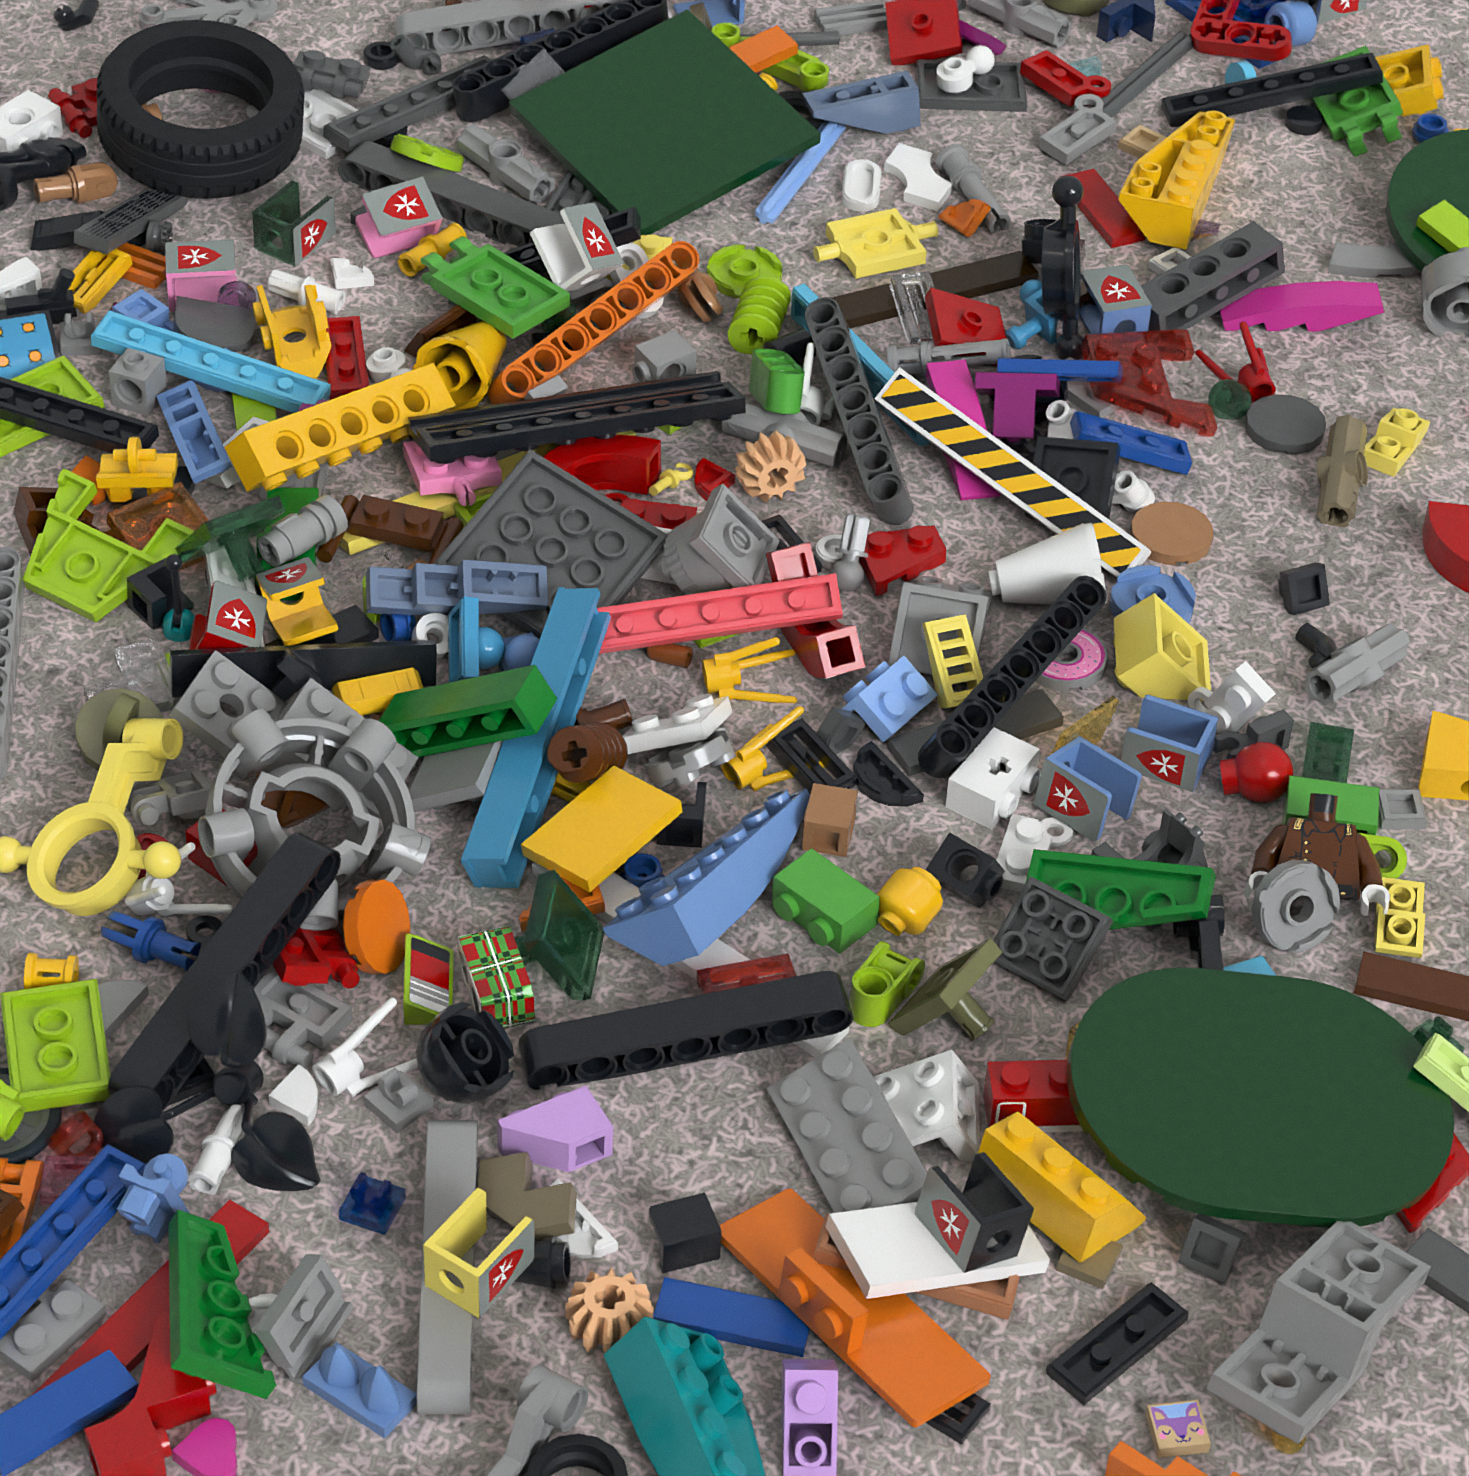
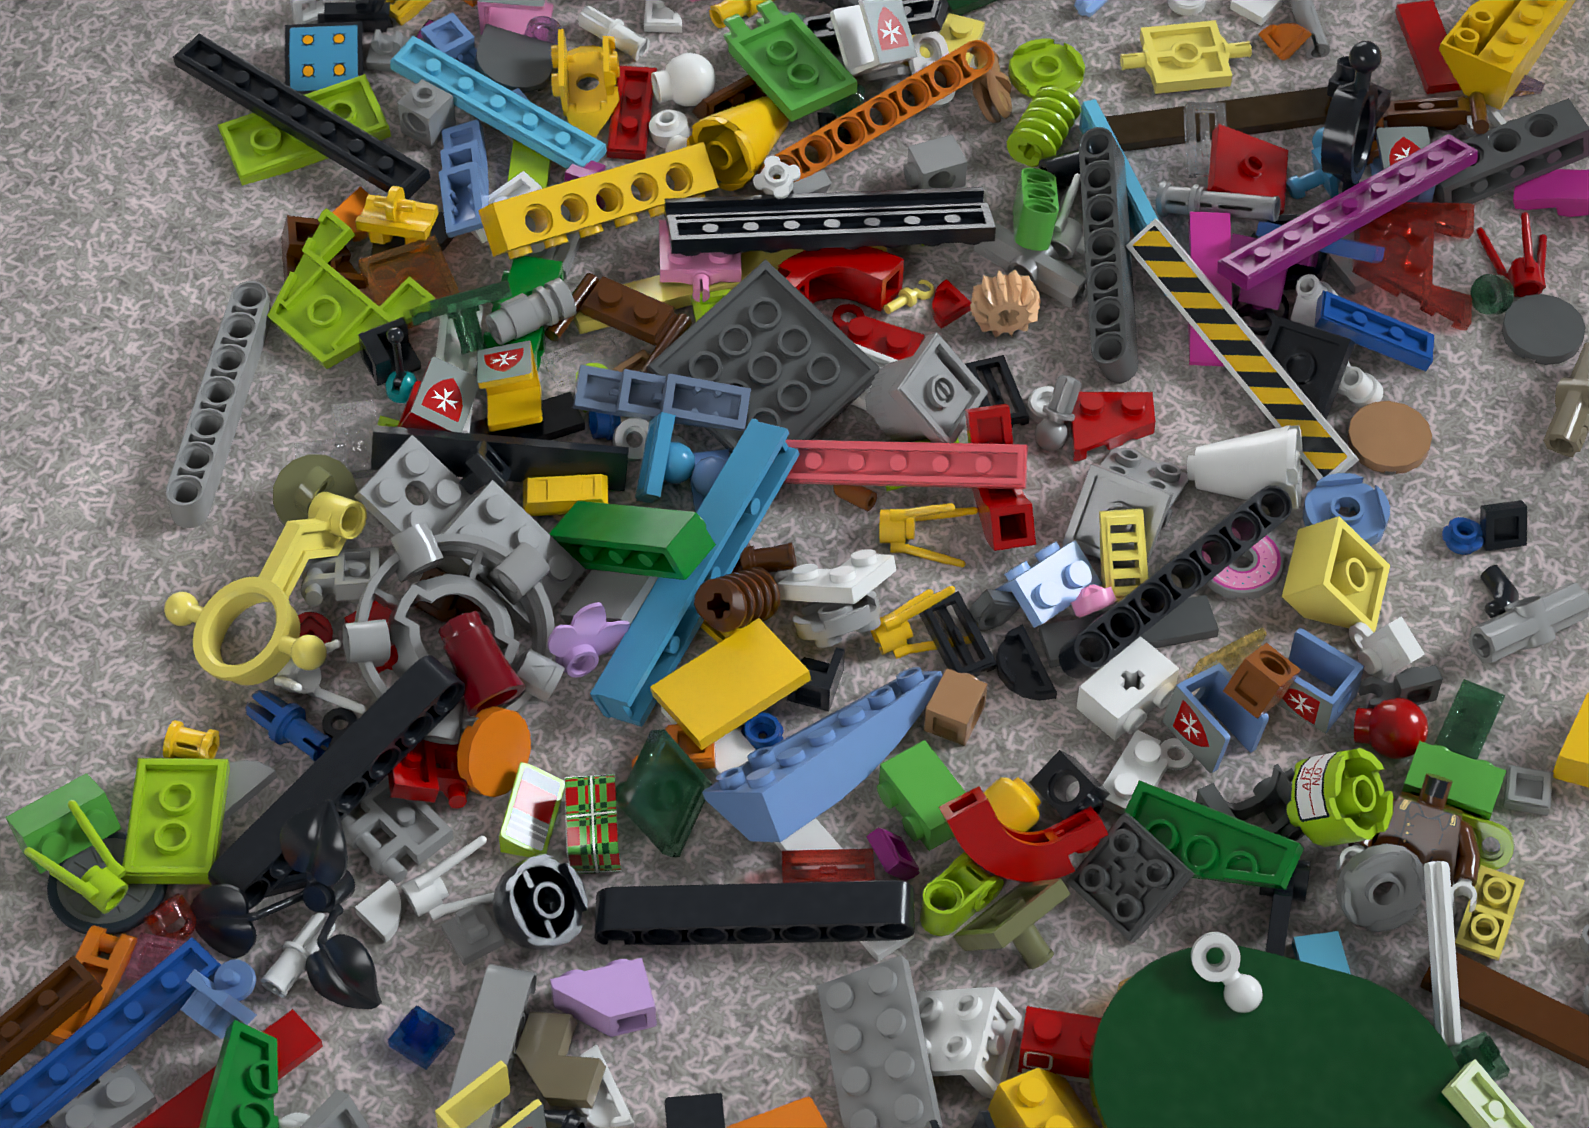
camera: 15 degrees right, 10 degrees up
(342, 827) = (479, 663): none -> dark red plant
(392, 320) = (685, 80): none -> white piece
(445, 807) = (585, 639): none -> lavender plate
(513, 392) = (778, 187): none -> white plate
(805, 953) = (893, 854): none -> magenta tile
(898, 919) = (1016, 853): none -> red arch
(936, 705) = (1093, 599): none -> bright pink tile
(1079, 338) = (1346, 212): none -> magenta tile
(1128, 740) = (1261, 680): none -> dark orange brick
(1136, 256) = (1441, 113): none -> reddish brown plate
(1198, 1004) = (1241, 990): none -> white plate
(1236, 826) = (1340, 798): none -> lime brick
(1268, 604) = (1461, 543): none -> blue plate
(1369, 943) = (1442, 951): none -> white axle

